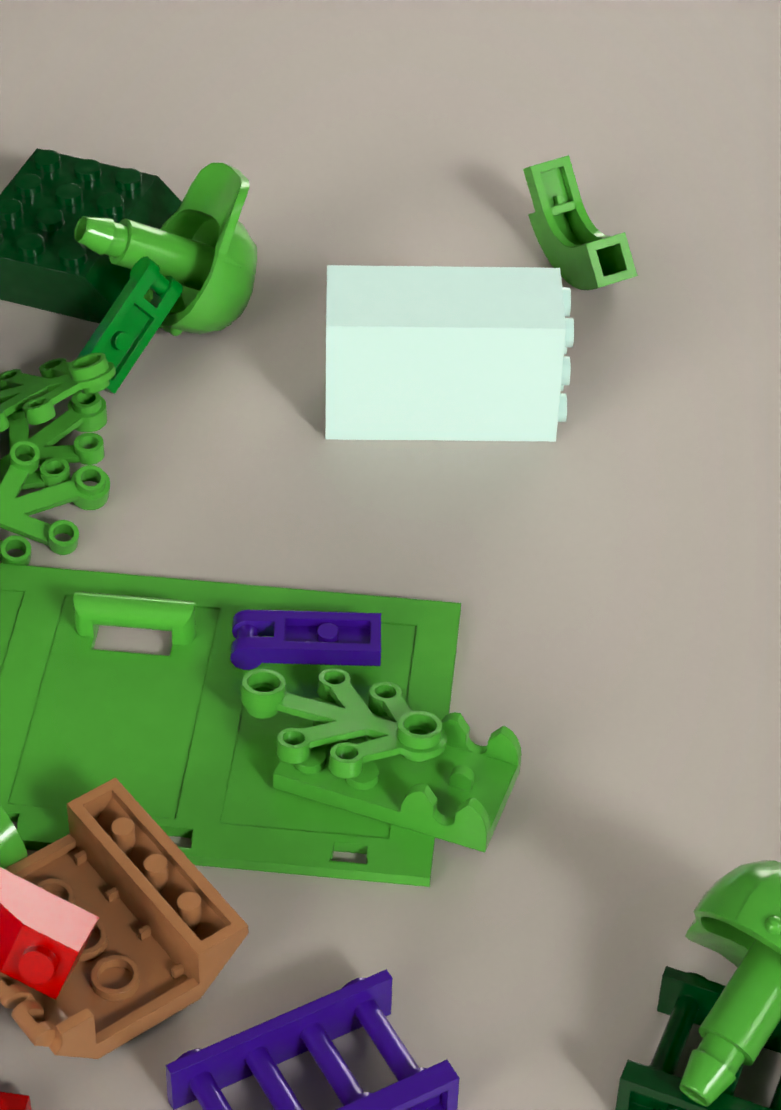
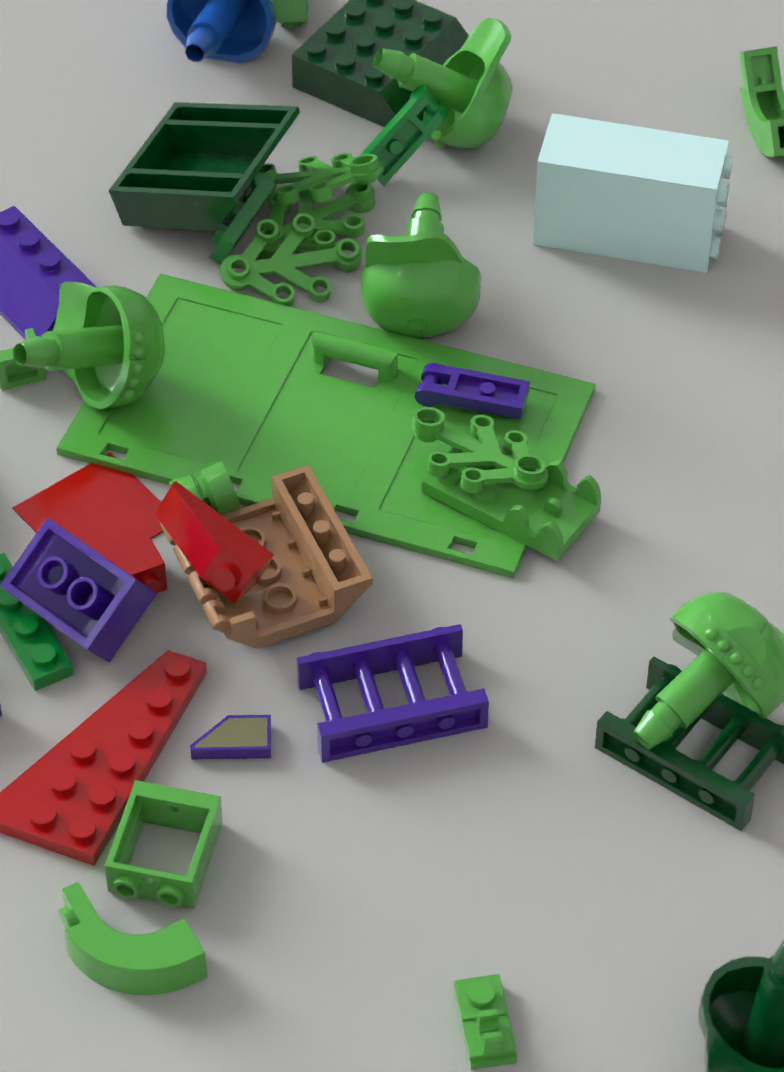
camera: 15 degrees right, 5 degrees up
(200, 502) = (419, 279): none -> bright green piece

